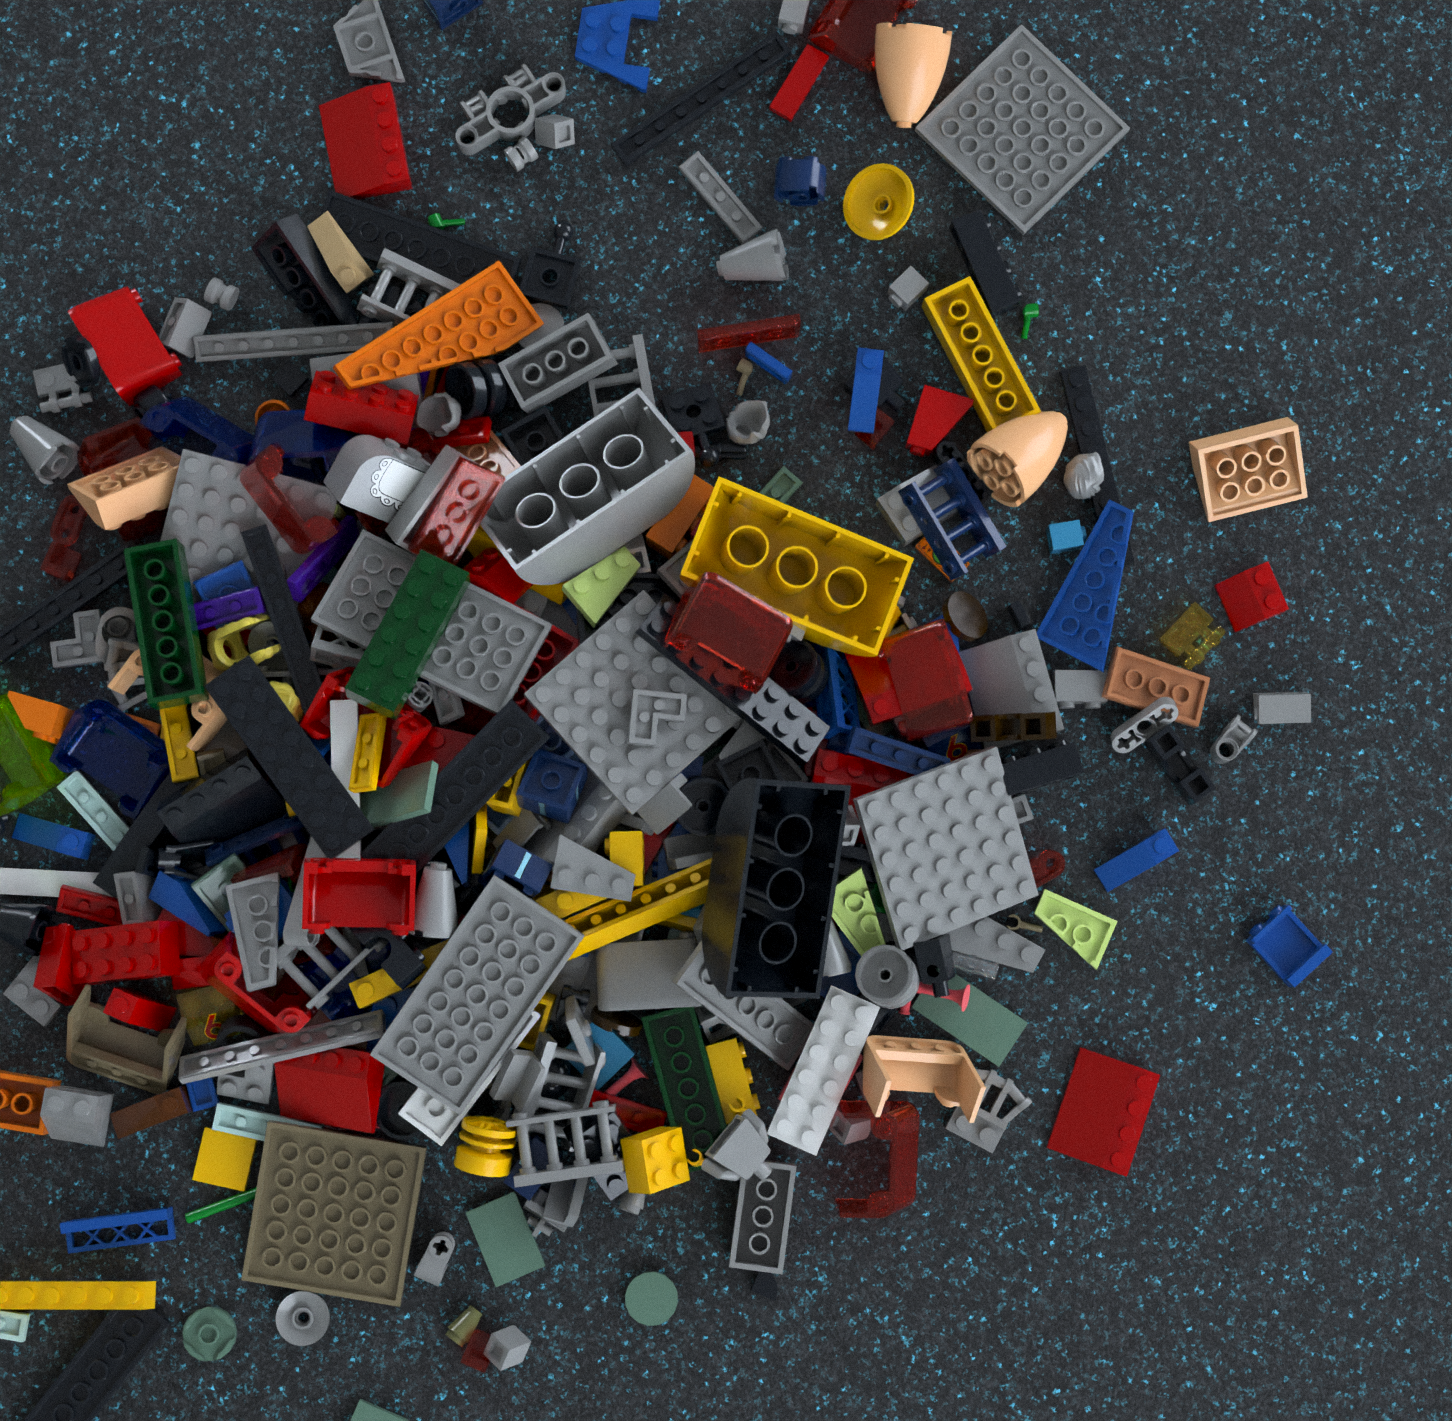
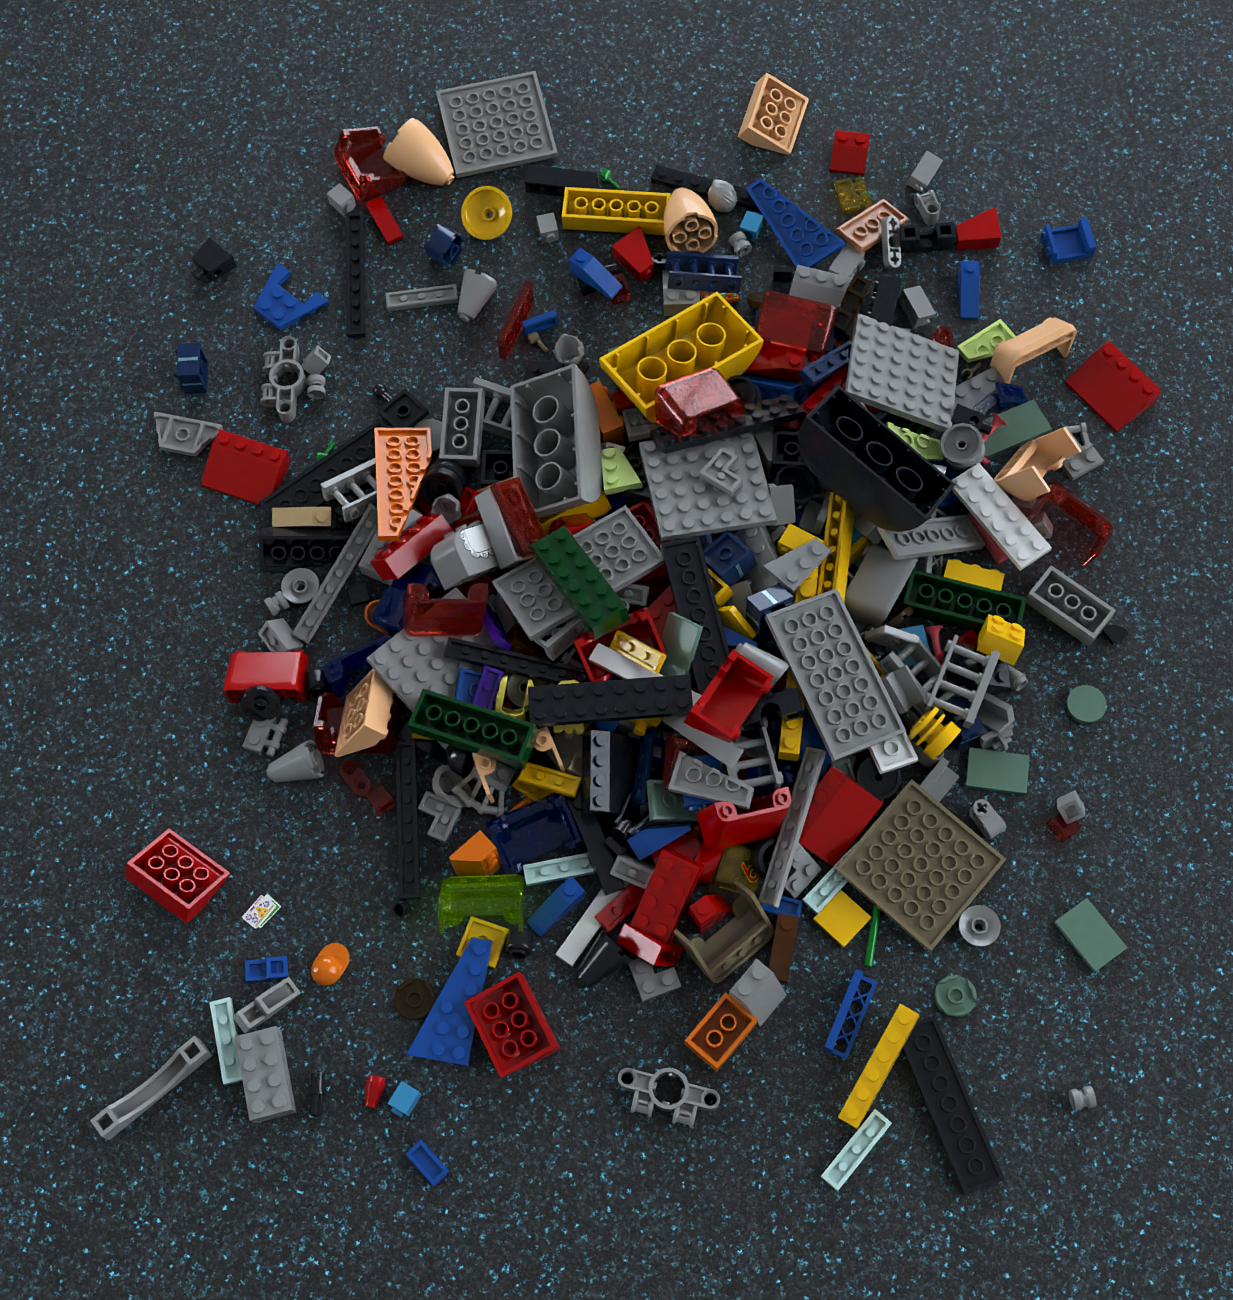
camera: 50 degrees left, 15 degrees down
(250, 297) = (300, 578): none -> light grey dish
(446, 1179) = (939, 780): none -> light grey panel
(464, 1325) = (1041, 827): olive cone -> none
(738, 1149) = (1022, 587): light grey torso -> none
(1014, 992) = (1008, 394): none -> clear blue slope
(1030, 538) = (740, 245): none -> light grey wheel
(1073, 807) = (916, 306): none -> light grey hinge
(1090, 985) = (1031, 344): none -> light nougat windscreen
(1231, 825) = (979, 232): none -> red slope

